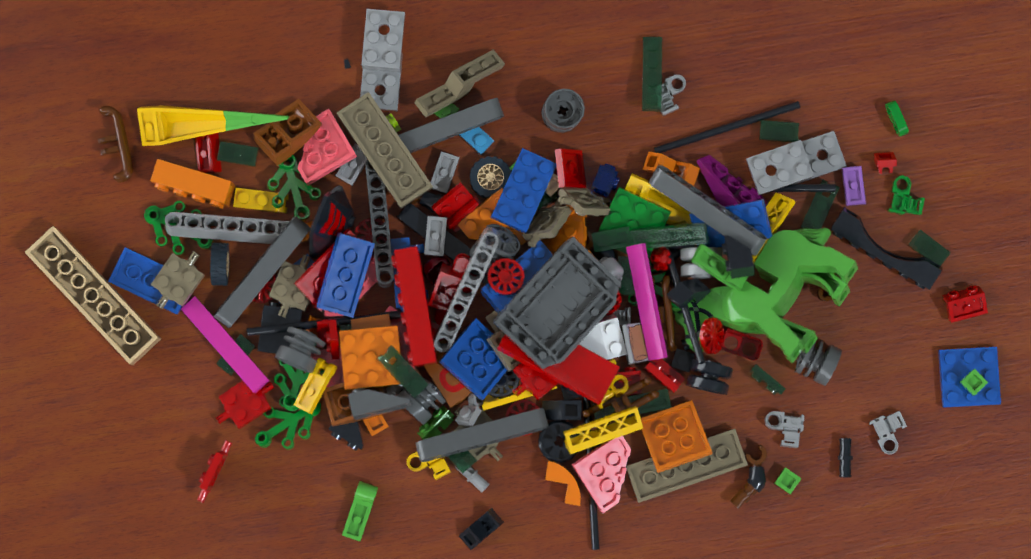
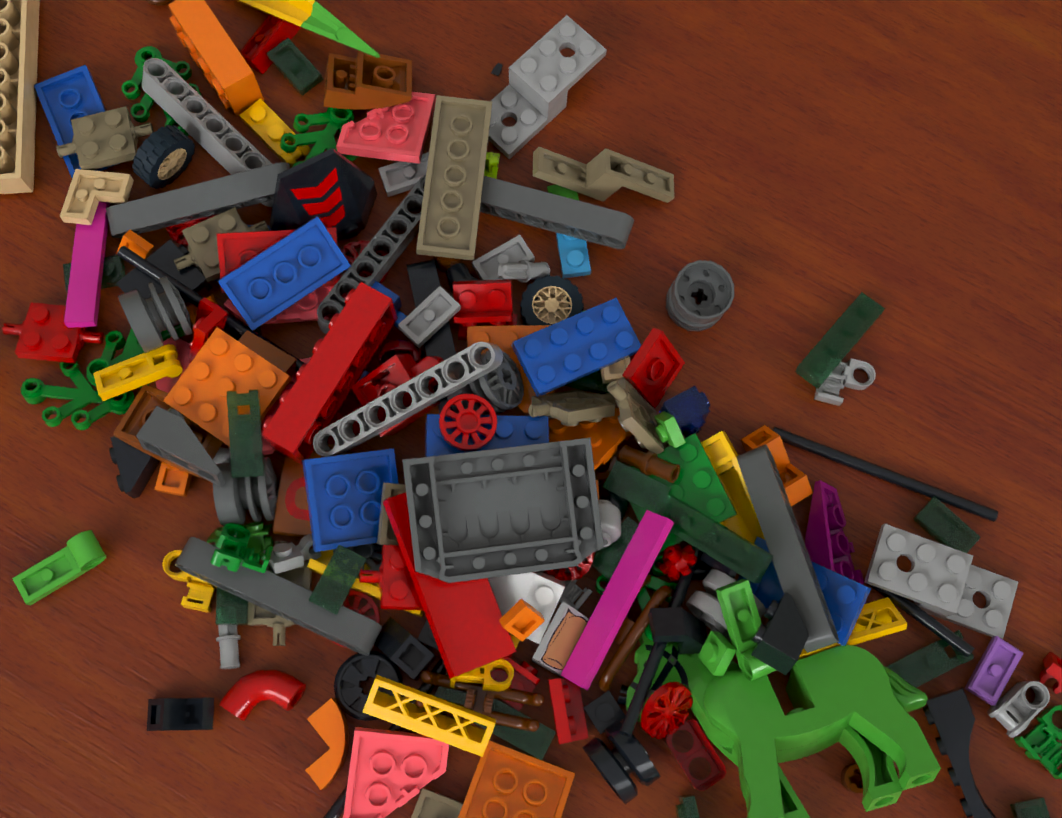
camera: 40 degrees right, 10 degrees down
(196, 313) = (89, 189): none -> tan plate
(247, 322) = (136, 244): none -> orange plate
(445, 432) = (233, 550): none -> green piece
(461, 170) = (523, 270): none -> light grey axle
(505, 403) = (337, 580): none -> clear green plate
(509, 483) = (260, 687): none -> red cylinder
(604, 197) = (668, 429): none -> bright green plate
(608, 222) = (649, 463): none -> reddish brown pin
(610, 350) = (521, 620): none -> orange plate
(714, 289) = (717, 653): none -> bright green plate
(877, 196) = (1015, 711): none -> light grey piece

